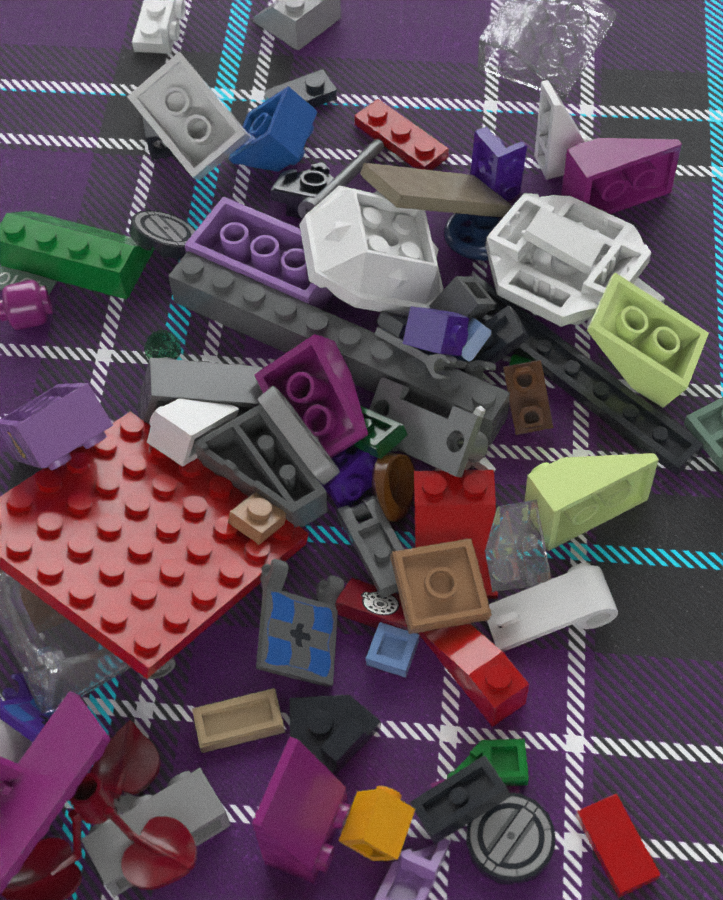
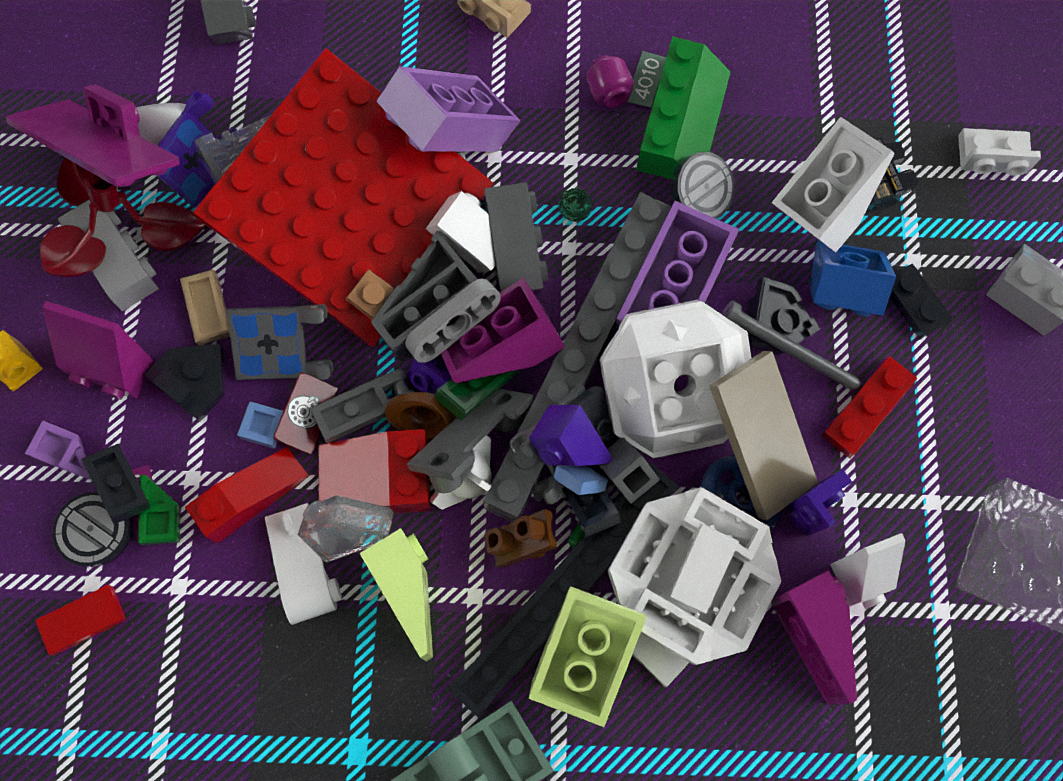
camera: 80 degrees right, 15 degrees up
(377, 824) = (98, 418): light orange brick -> none
(440, 586) = (310, 459): medium nougat tile -> none

